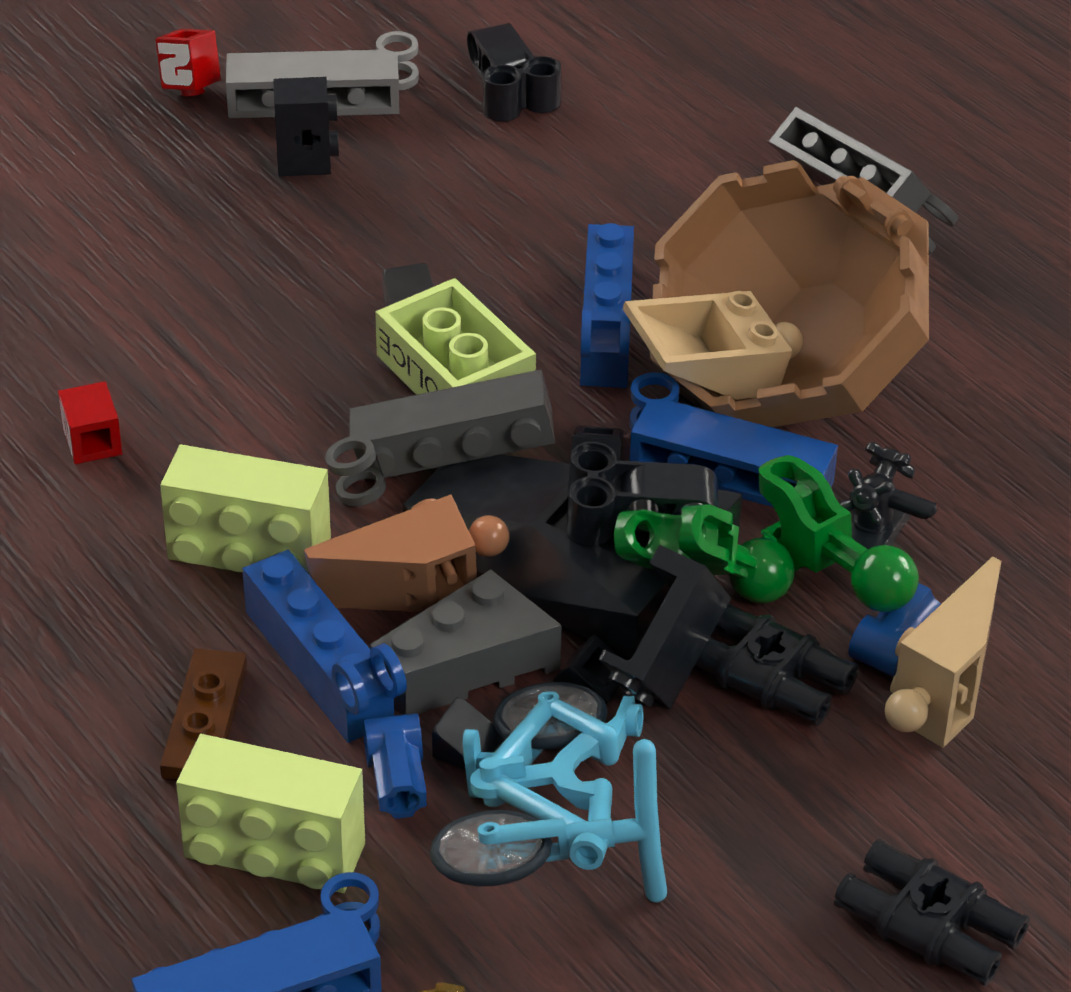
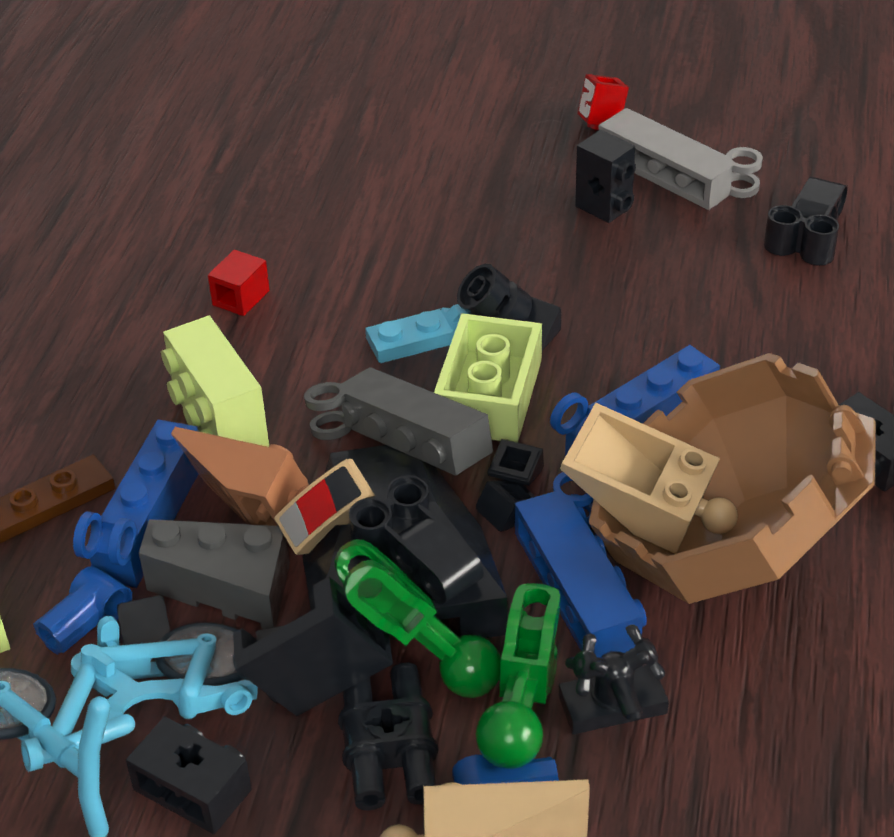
camera: 50 degrees right, 0 degrees up
(316, 363) = (414, 333): none -> medium azure hinge
(365, 284) = (491, 294): none -> black wheel
(522, 524) = (322, 506): none -> slope
(572, 408) = (516, 462): none -> black slope
(693, 794) = (189, 774): none -> black brick

